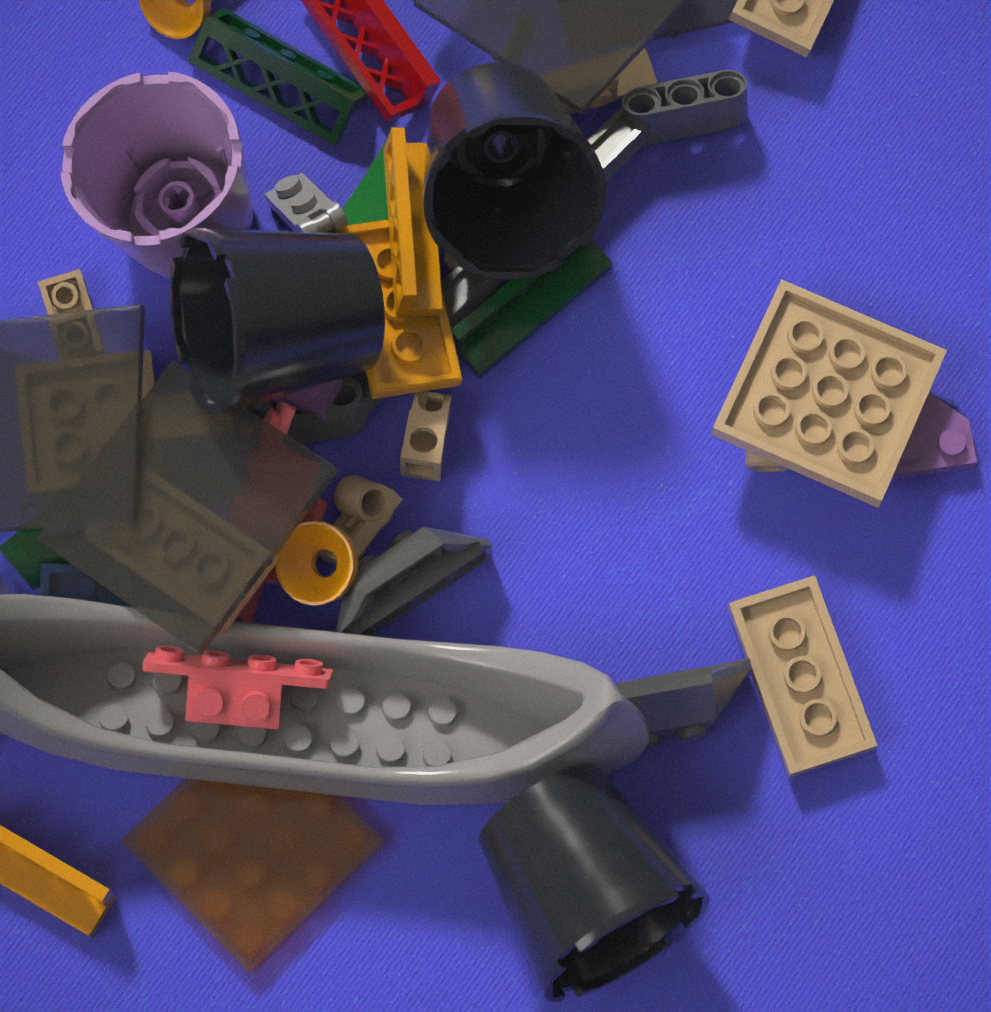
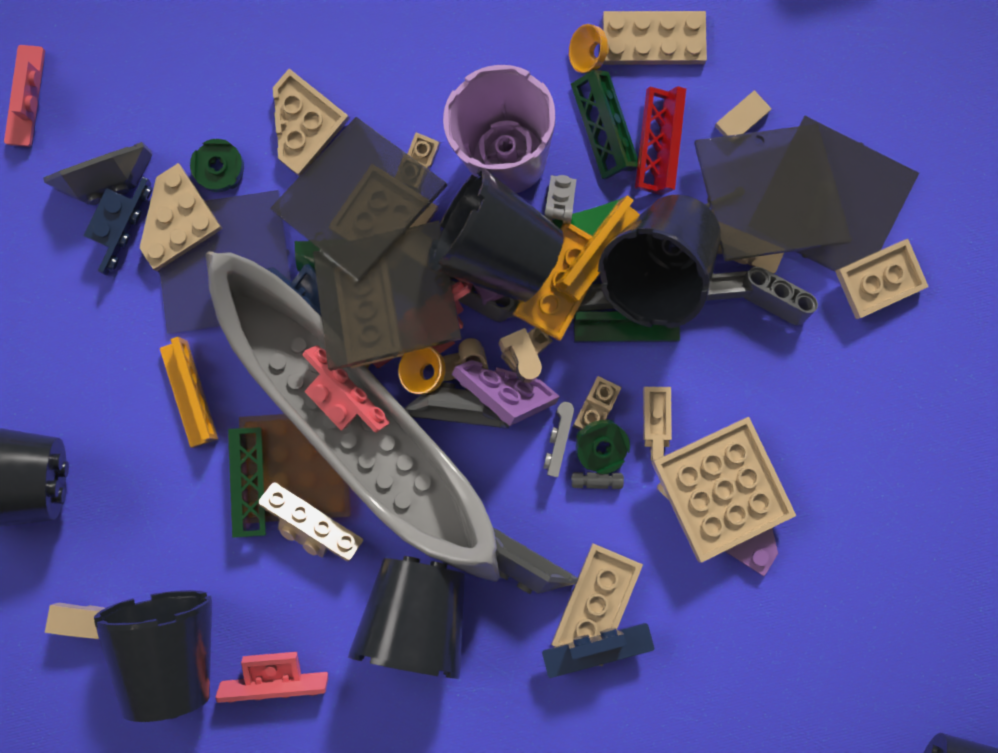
camera: 45 degrees right, 10 degrees up
(194, 924) = (236, 482): none -> dark green fence
(342, 896) = (308, 525): none -> bracket
(430, 436) = (524, 355): none -> tan leg
(466, 501) = (504, 392): none -> medium lavender plate
(569, 509) = (559, 438): none -> light grey plate
(581, 432) = (598, 403): none -> tan slope
(609, 480) = (615, 452): none -> dark green plate
(664, 523) = (597, 480): none -> dark grey axle
(671, 383) = (657, 419): none -> tan hinge
(852, 725) = (597, 650): none -> dark blue bracket

